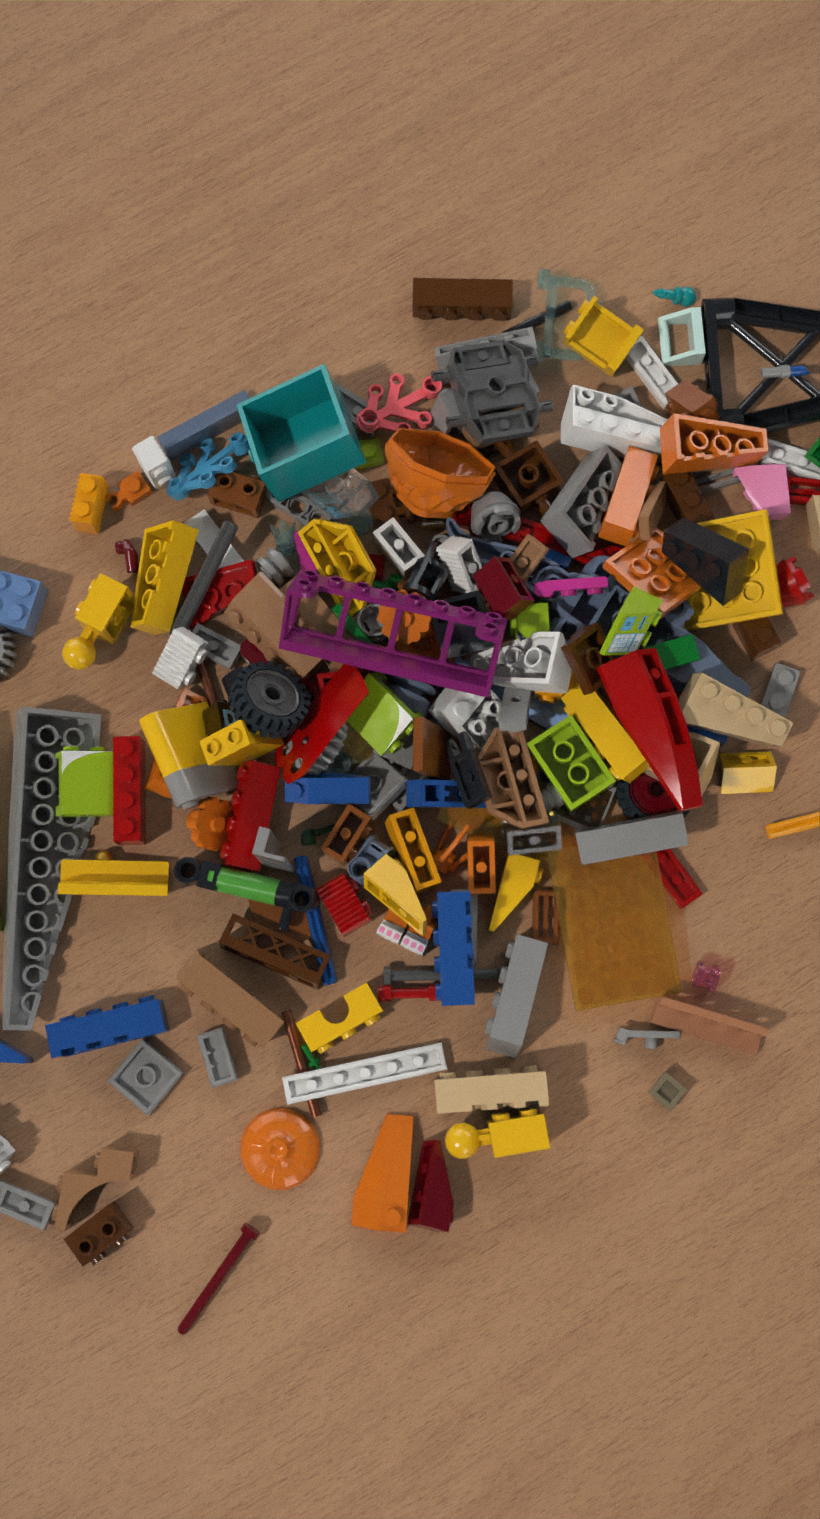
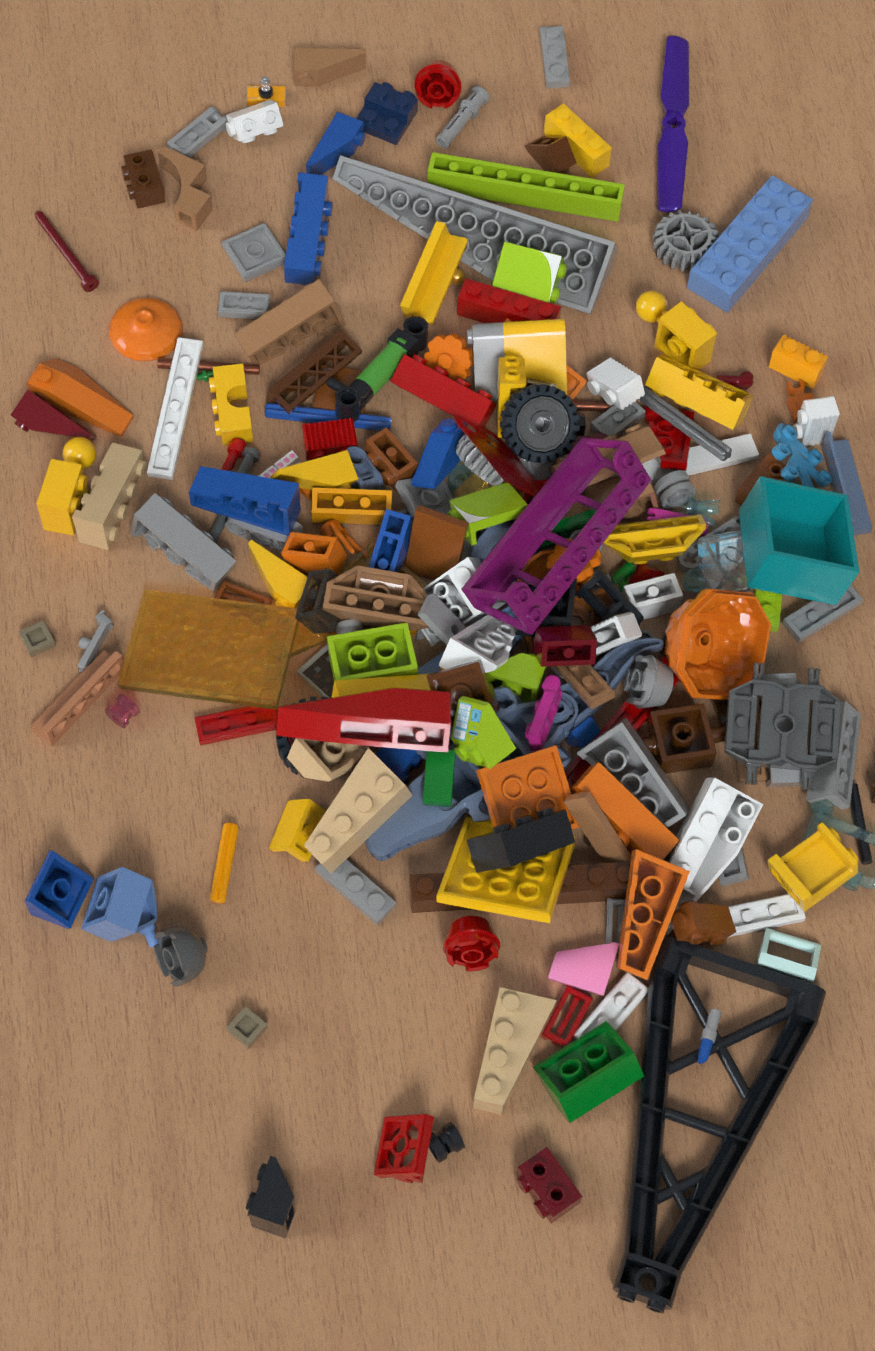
camera: 105 degrees right, 15 degrees down
(267, 850) = (397, 380): light grey panel -> none
(308, 835) = (405, 436): clear green hand -> none
(397, 407) = (803, 647): coral plant -> none
(467, 771) = (403, 561): black hinge -> none
(631, 837) = (279, 678): light grey panel -> none
(684, 296) = (838, 983): teal bar -> none

